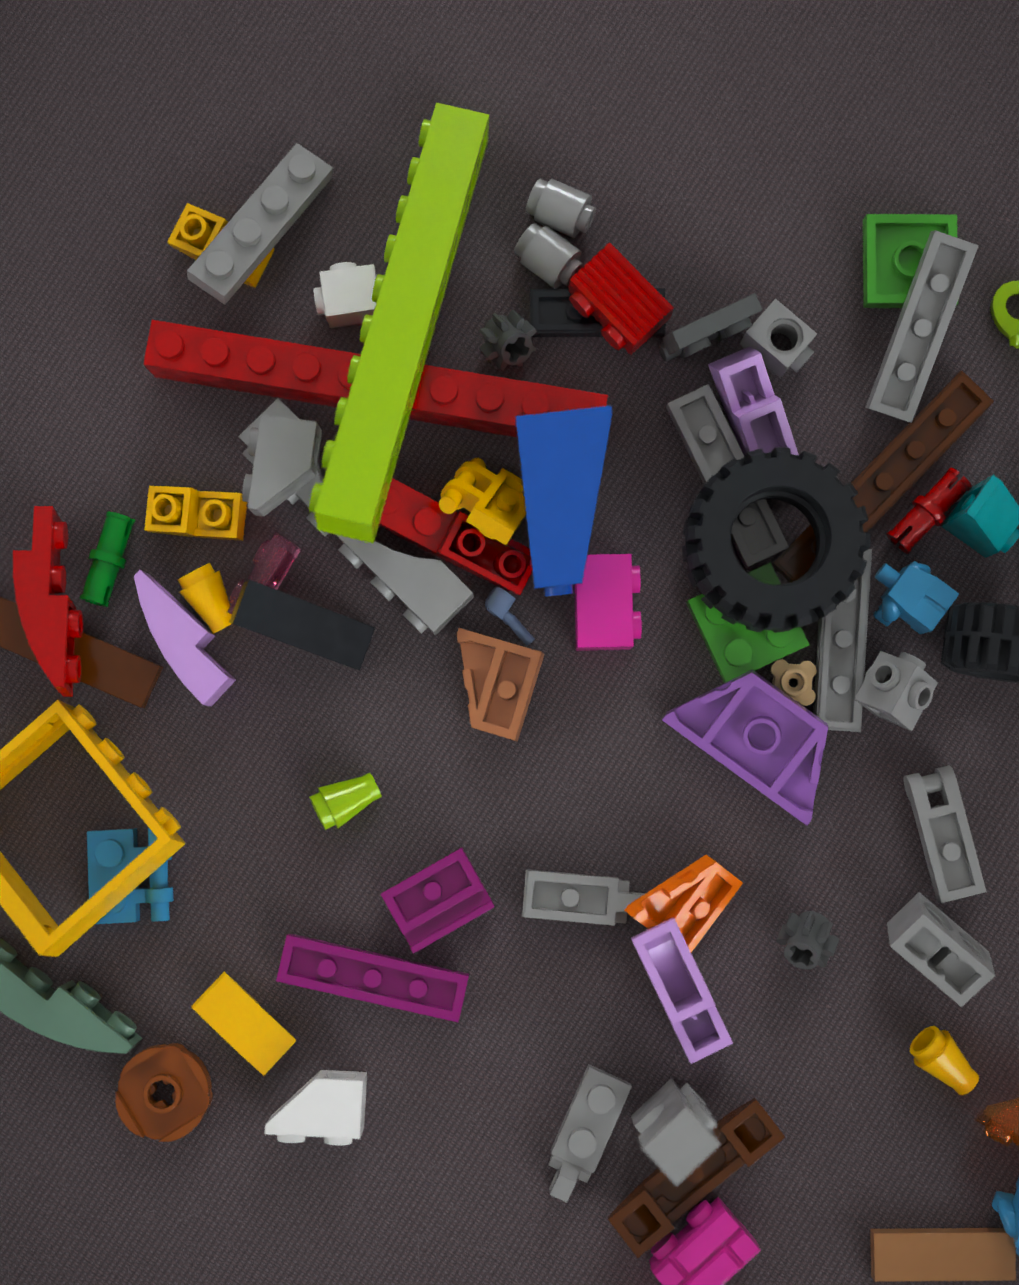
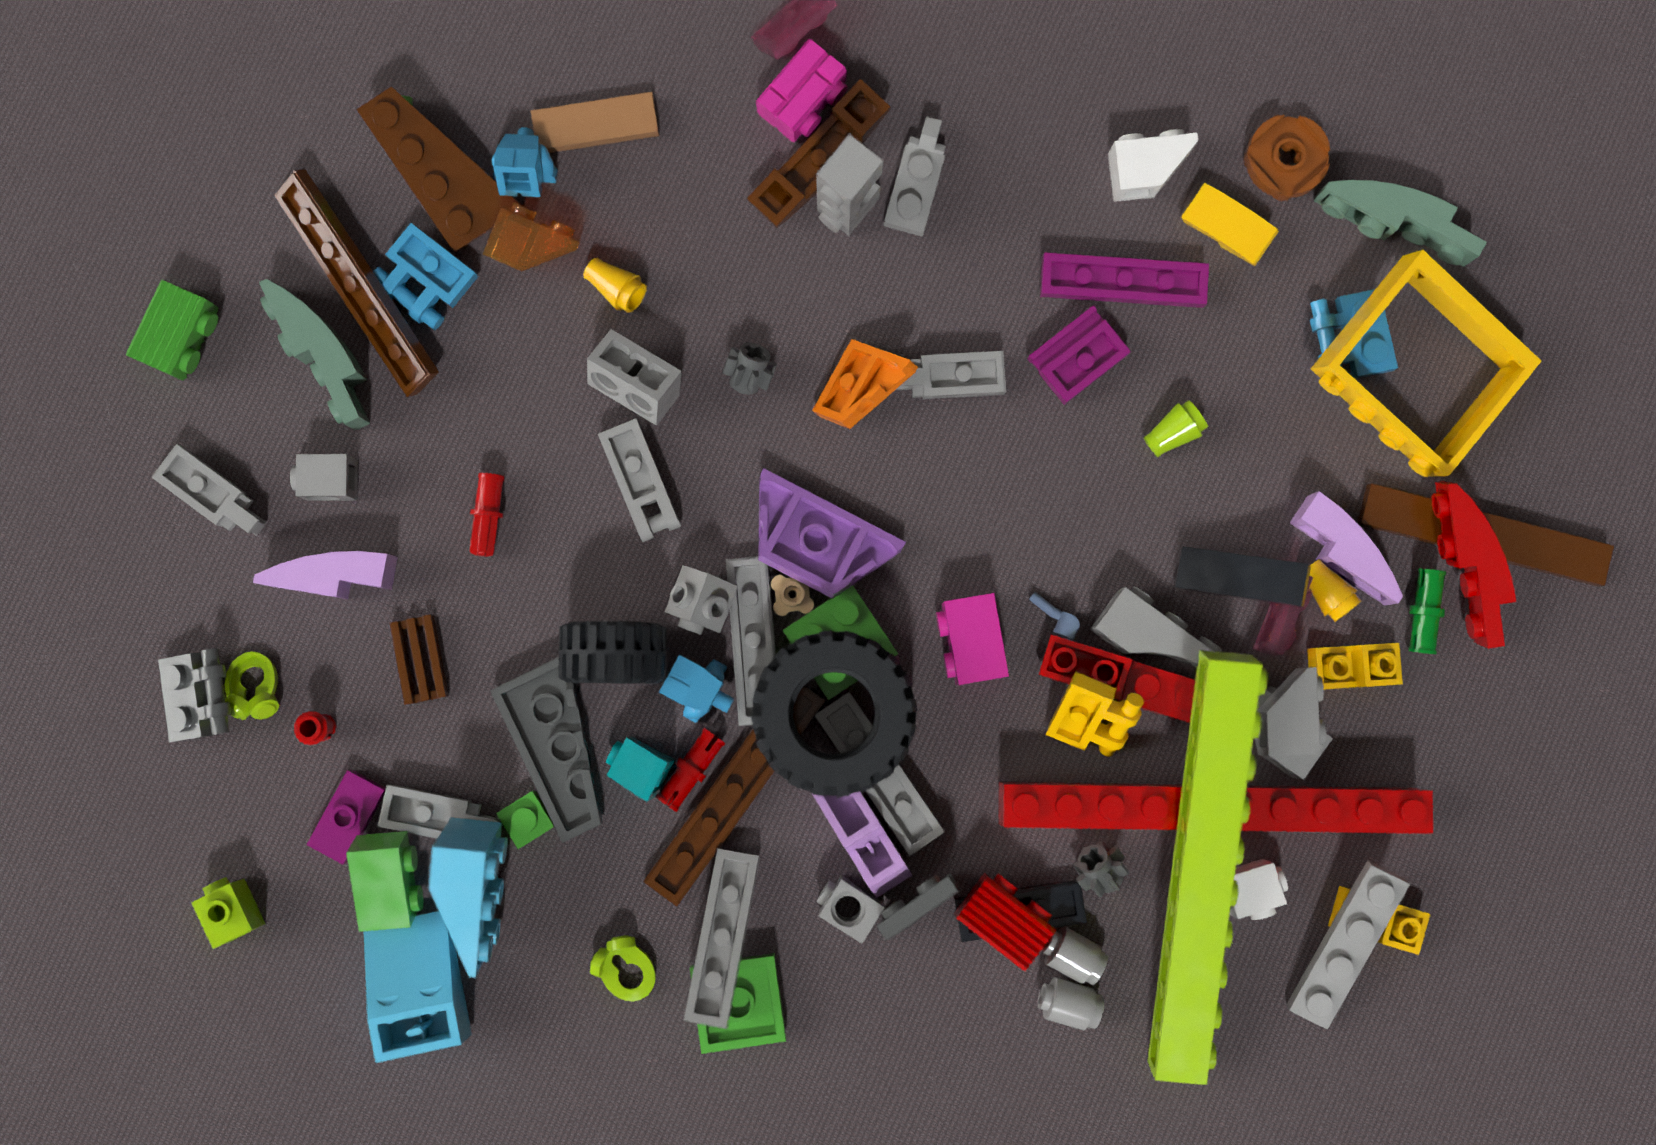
camera: 170 degrees right, 0 degrees up
(498, 682) = (1056, 554): nougat wing -> none
(561, 482) = (1036, 729): blue slope -> none
(681, 990) = (855, 307): lavender slope -> none

